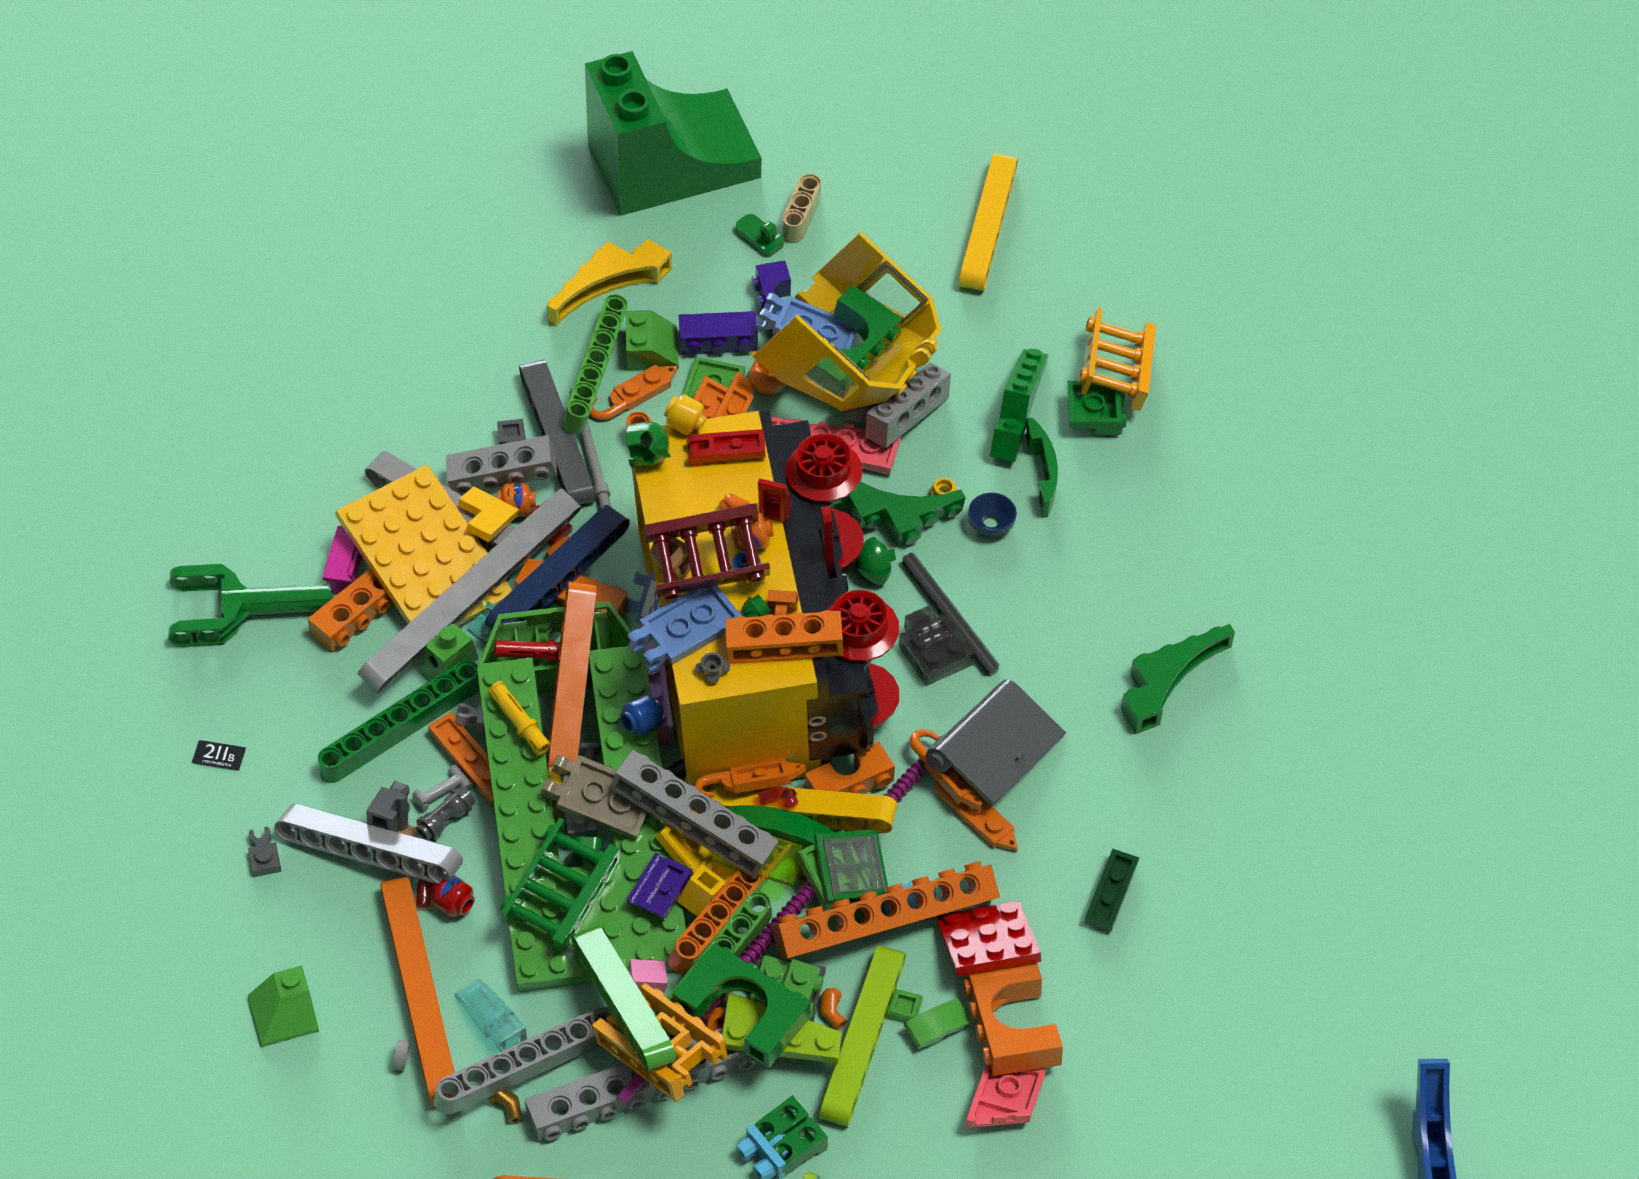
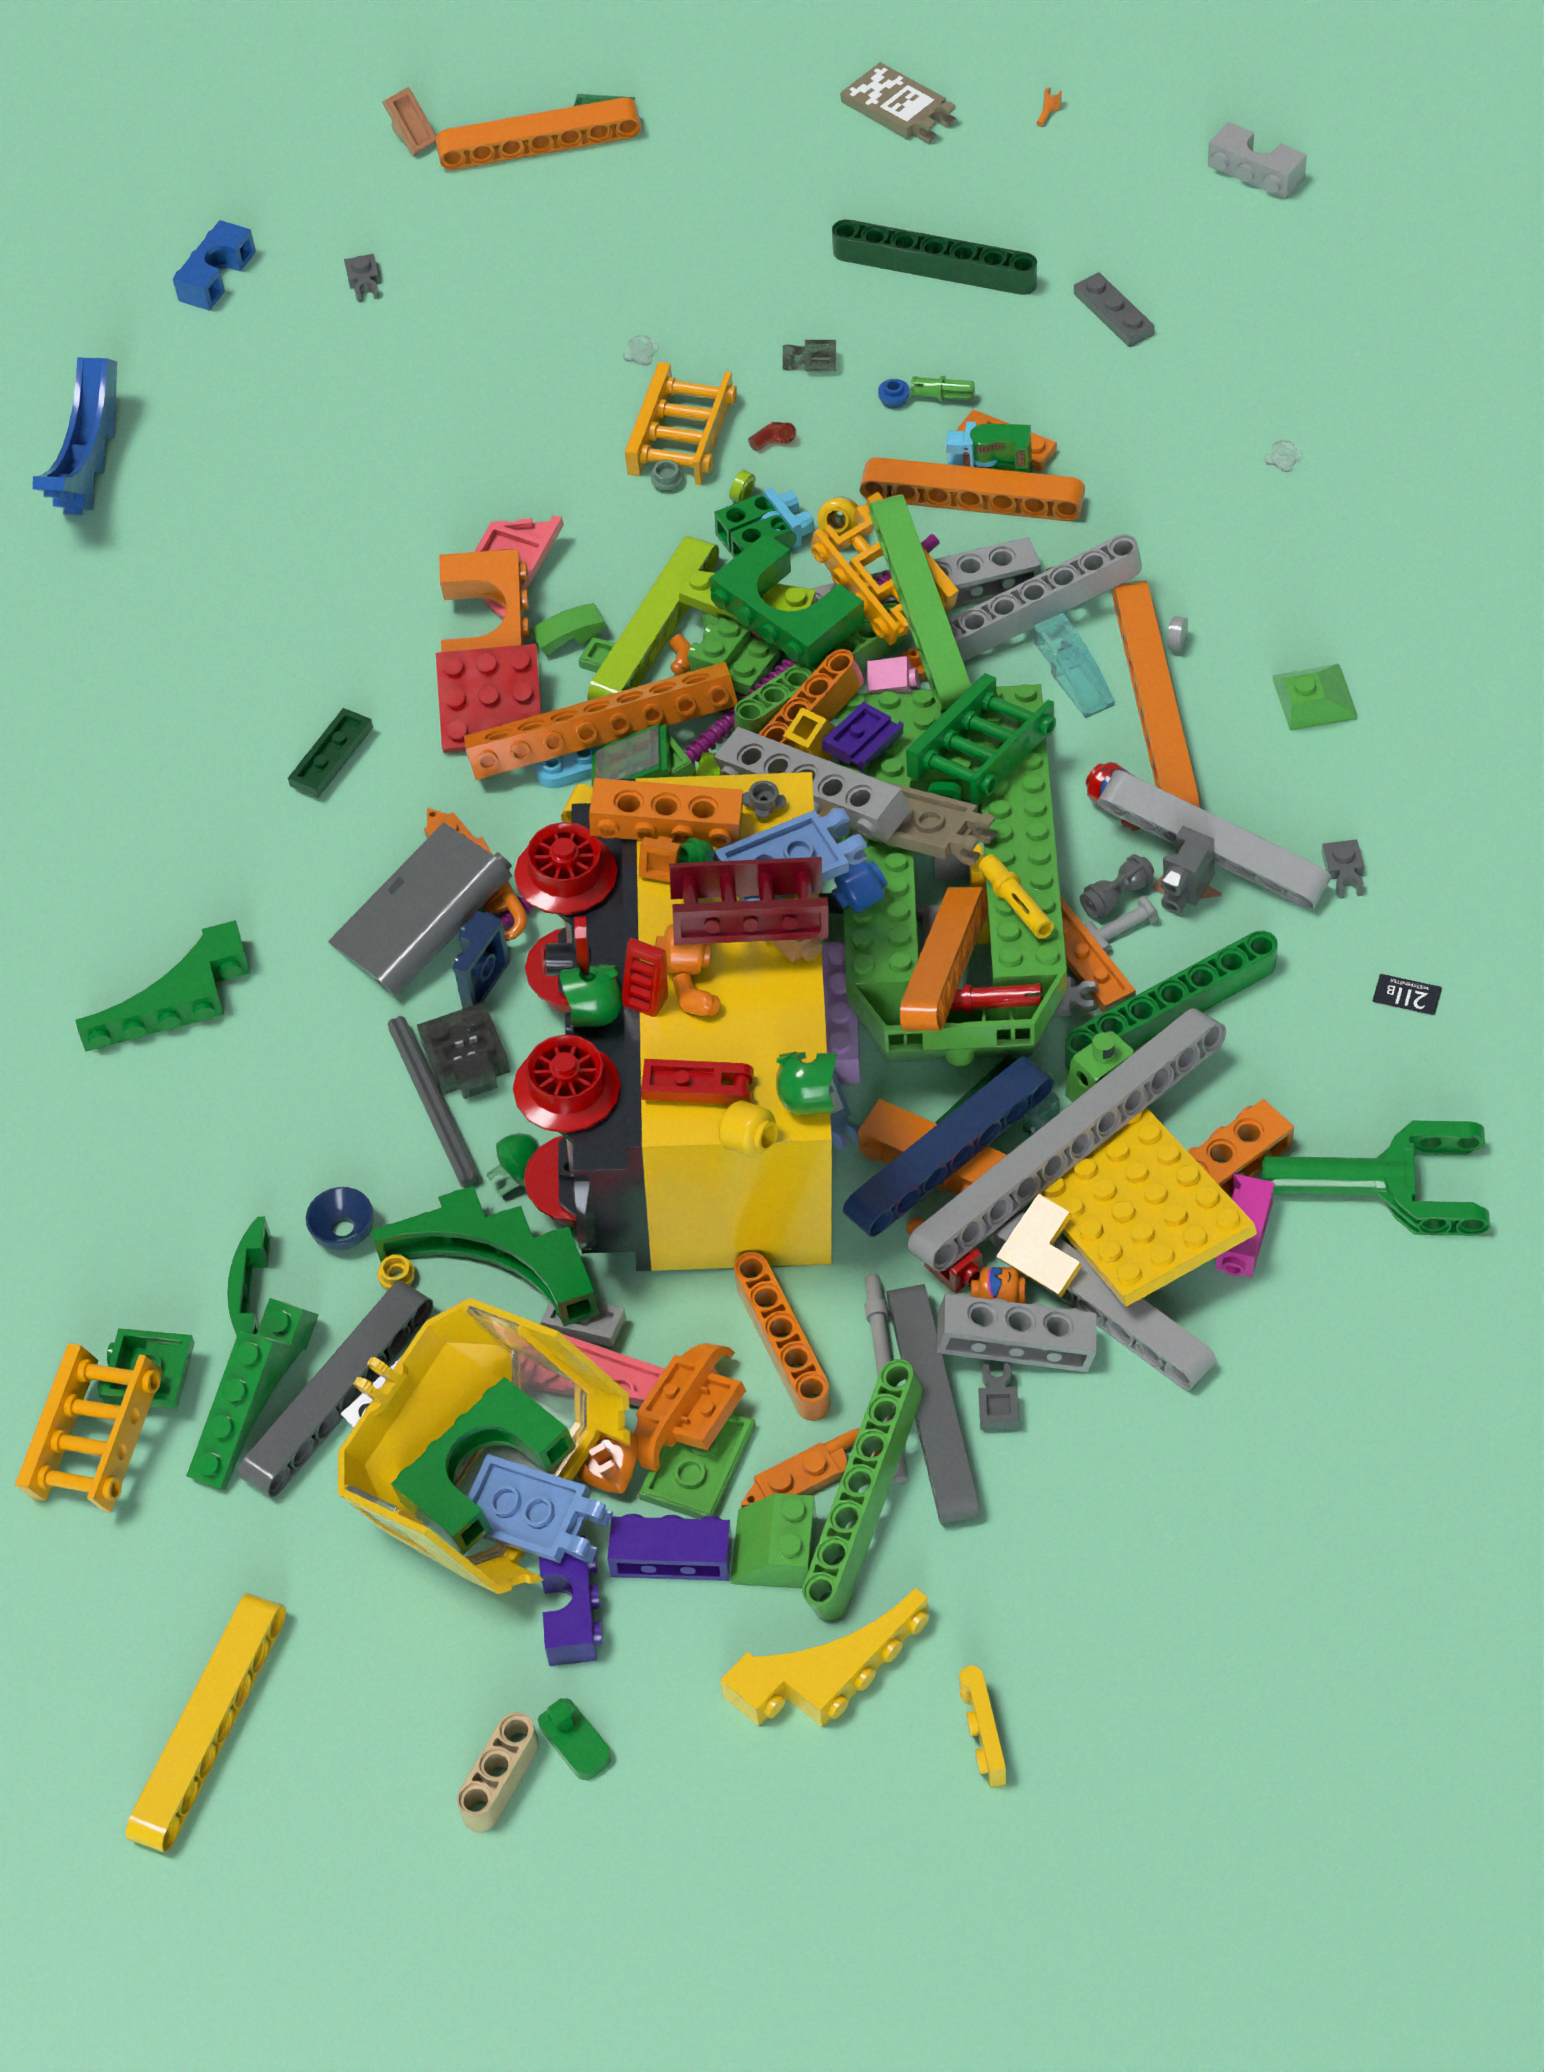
camera: 165 degrees left, 0 degrees up
(507, 253) = (982, 1724): none -> yellow plate
(662, 142) = (696, 1887): green brick -> none
(713, 1148) = (828, 514): none -> yellow head
(808, 514) = (593, 997): none -> green helmet
(937, 700) = (482, 959): none -> dark blue plate
(962, 412) = (320, 1404): none -> dark grey beam

